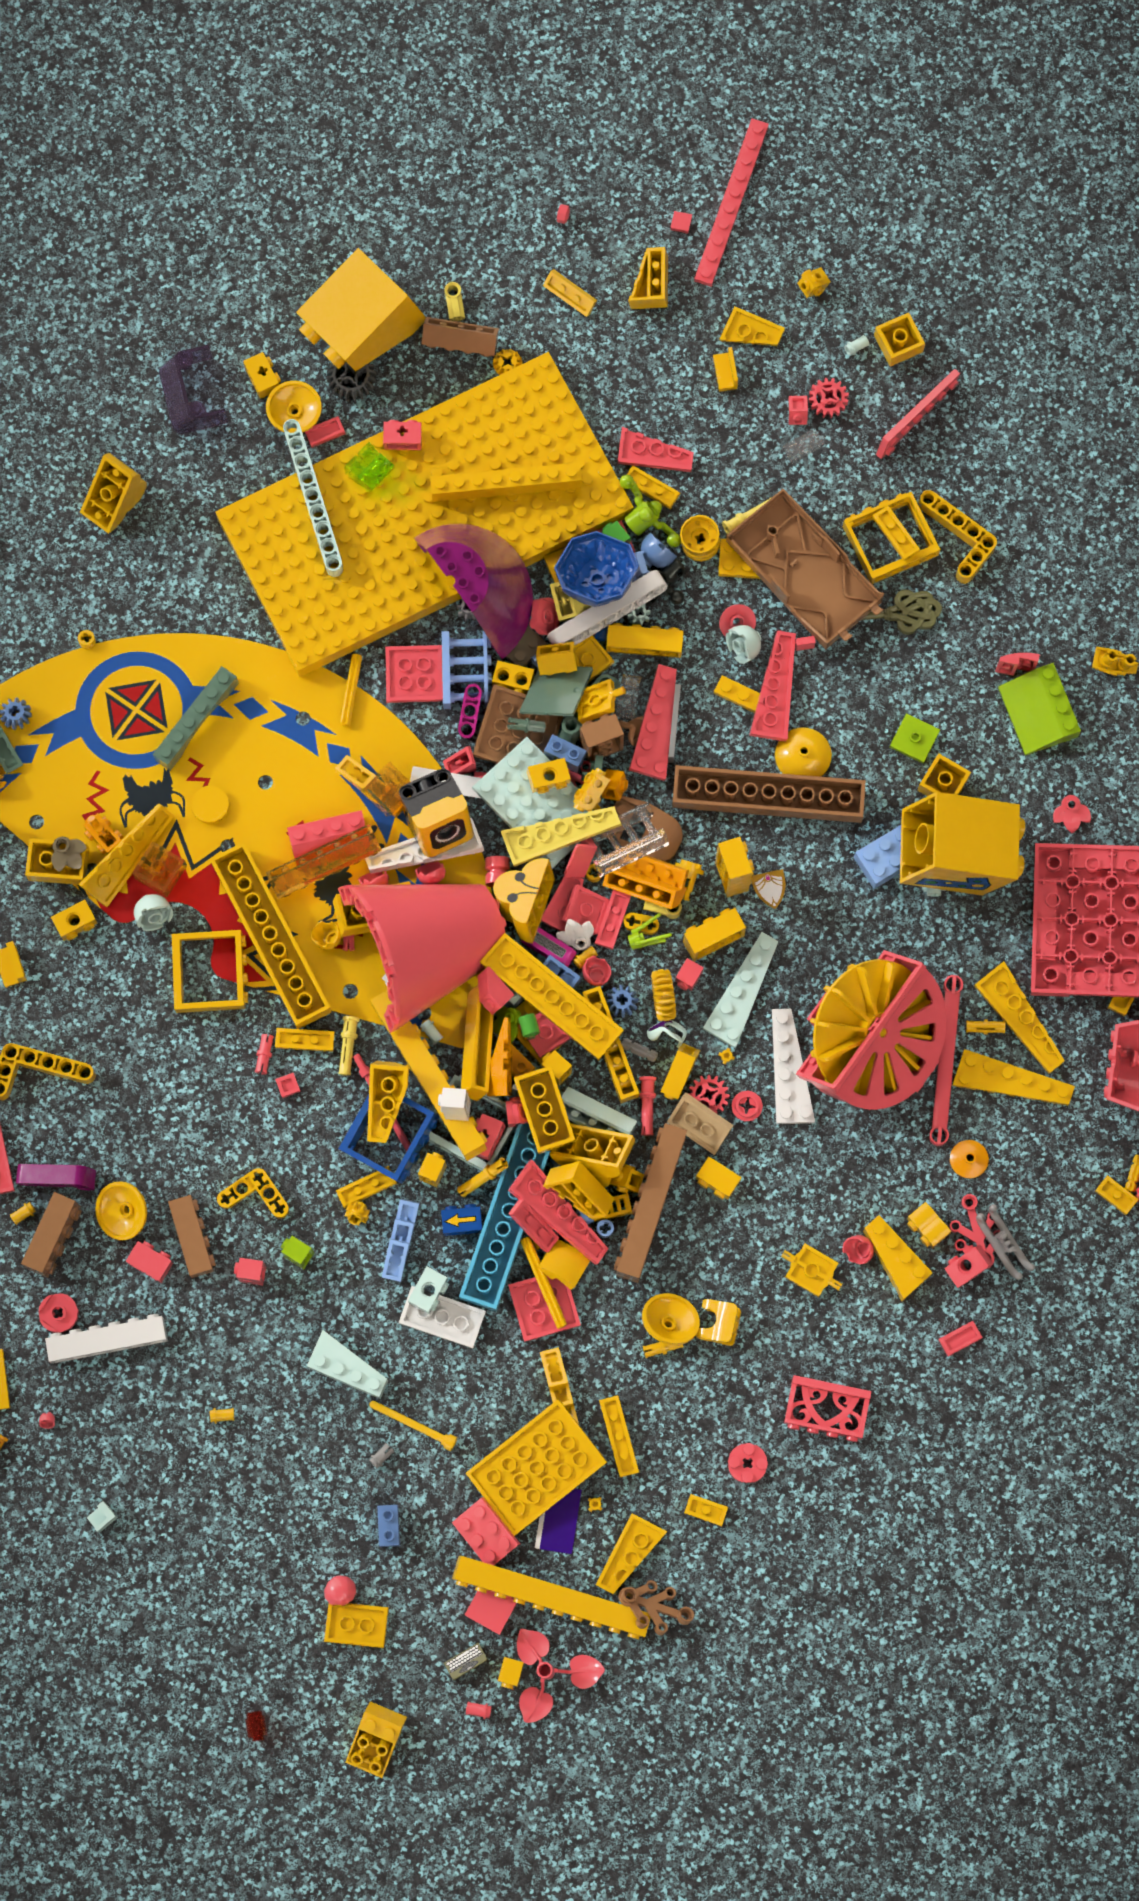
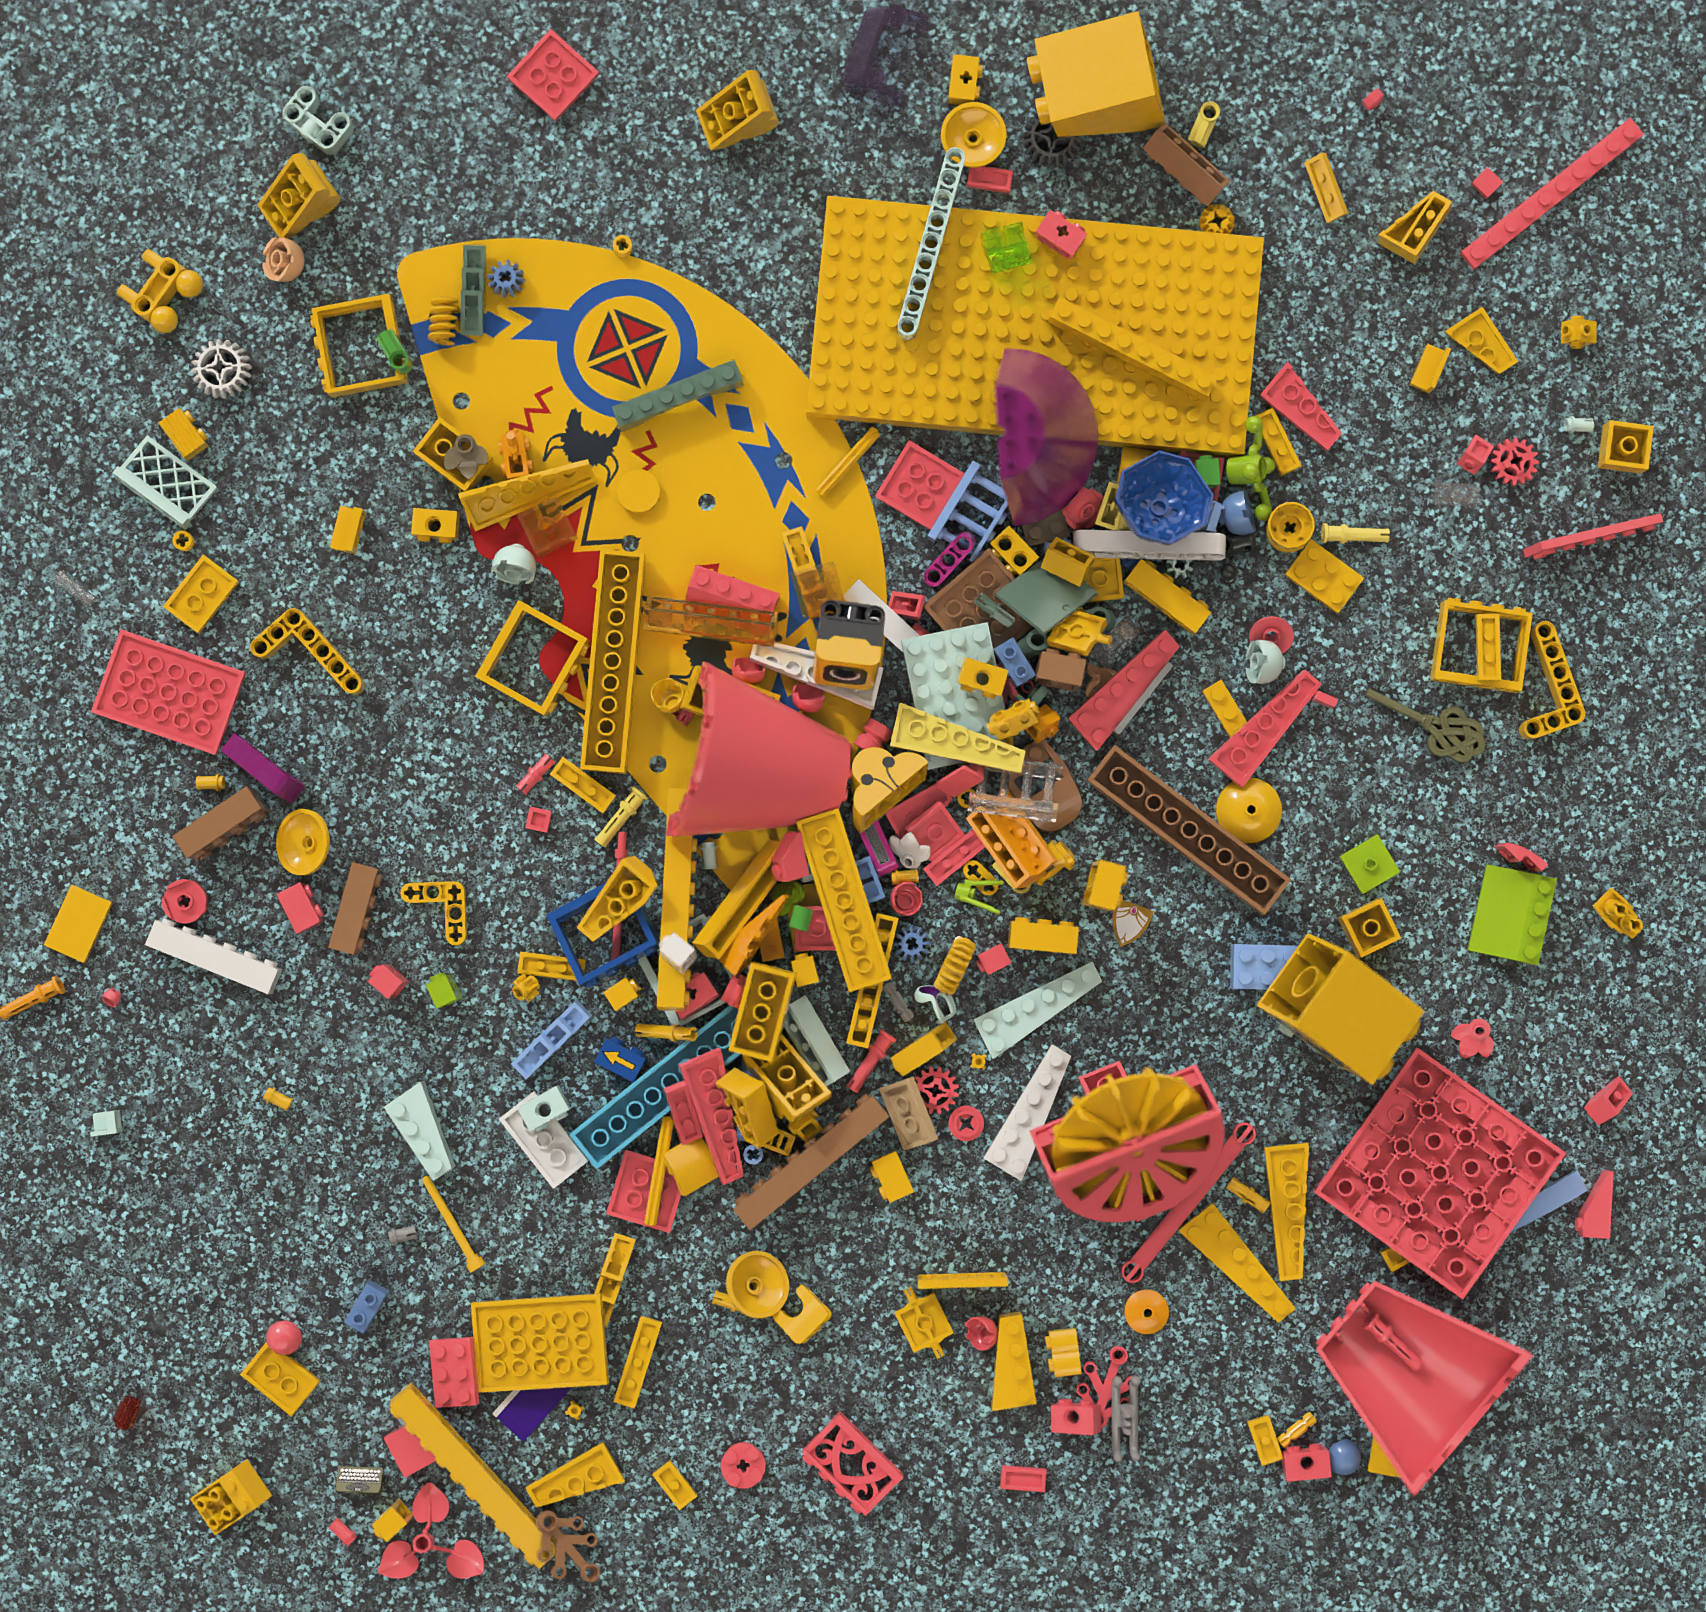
camera: 35 degrees right, 10 degrees up
(805, 569) = (1373, 626): medium nougat piece -> none
(819, 1218) = (959, 1280): none -> yellow tile

